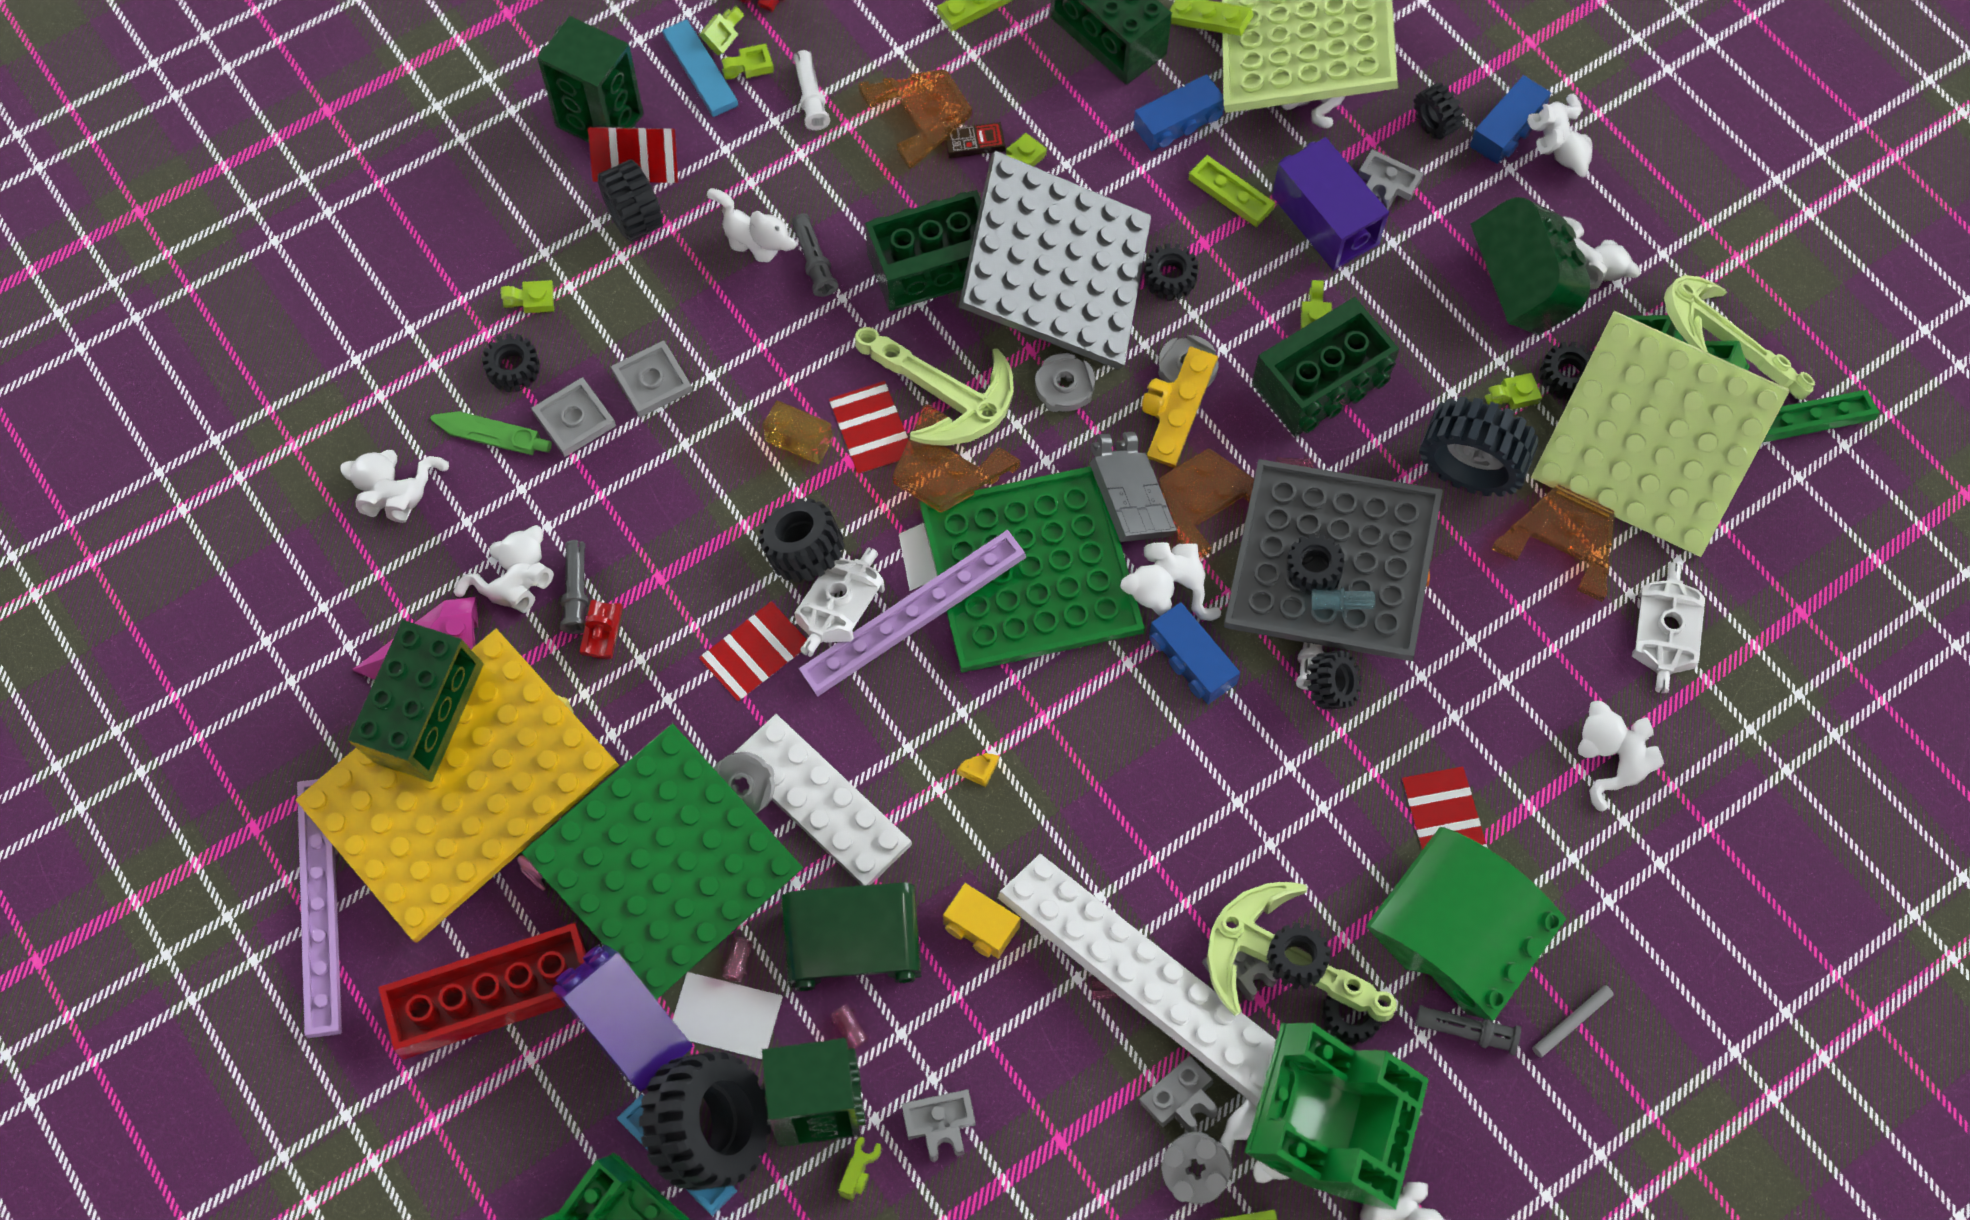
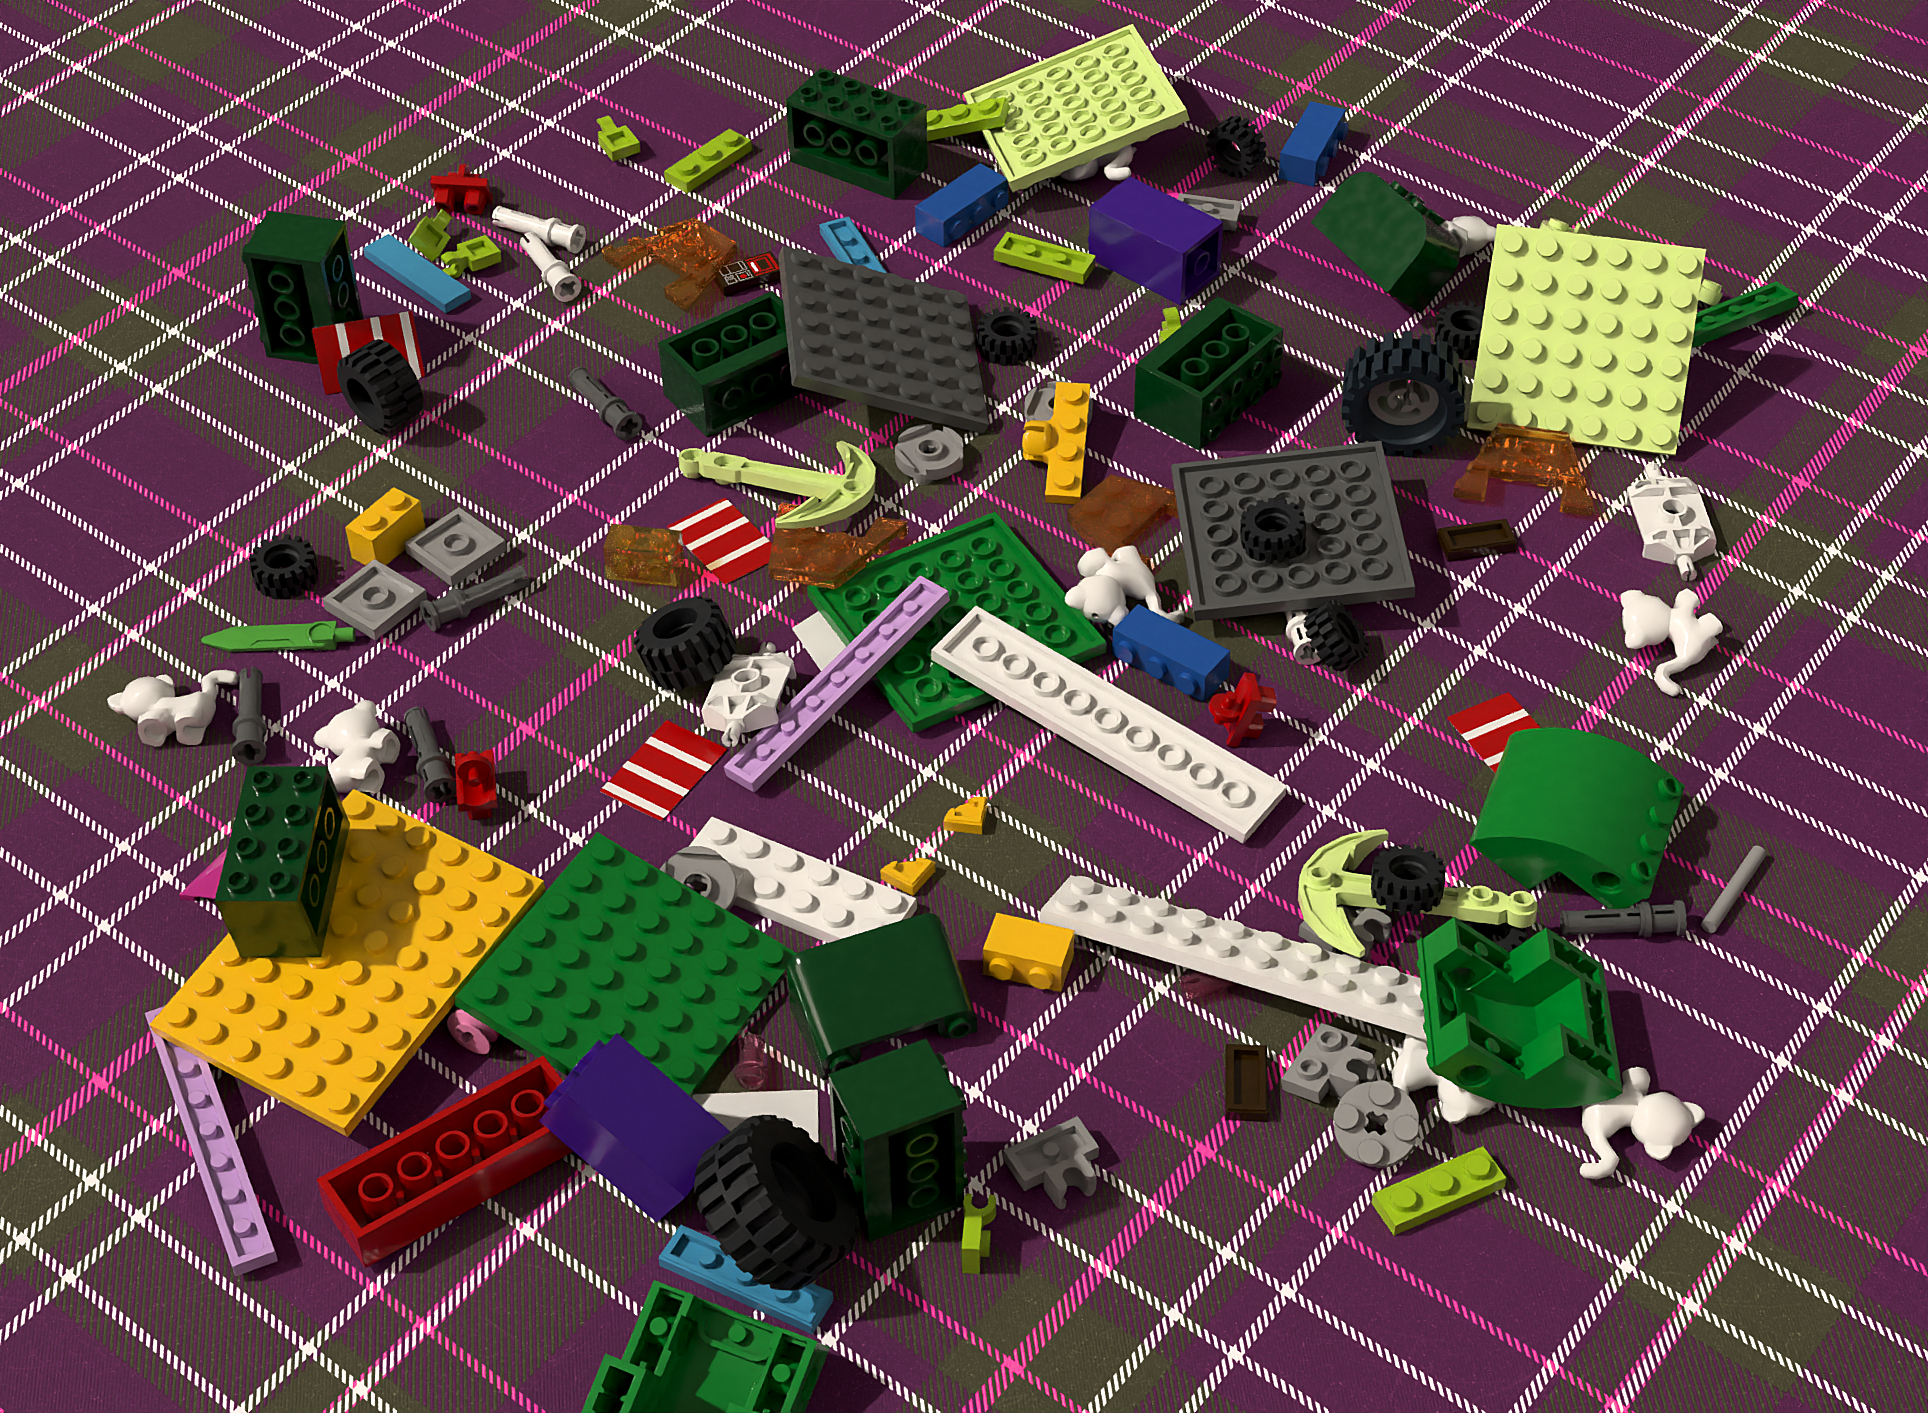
camera: 15 degrees left, 20 degrees down
(444, 520) = (249, 726): none -> dark grey pin
(535, 296) = (289, 504): lime plate -> none
(599, 347) = (385, 527): none -> yellow brick
(639, 439) = (460, 602): none -> dark grey pin
(760, 233) = (541, 391): white animal -> none
(822, 51) = (551, 231): none -> white pin
(914, 812) = (908, 875): none -> yellow tile
(1072, 142) = (848, 244): none -> dark azure tile
(1112, 1090) = (1246, 1083): none -> dark brown tile
(1117, 715) = (1110, 724): none -> white plate
(1130, 489) = (1037, 522): tile -> none
(1230, 734) = (1238, 709): none -> red hips
(1343, 600) = (1316, 553): clear light blue axle -> none
(1495, 600) = (1477, 540): none -> dark brown tile
(1569, 146) = (1379, 150): white animal -> none

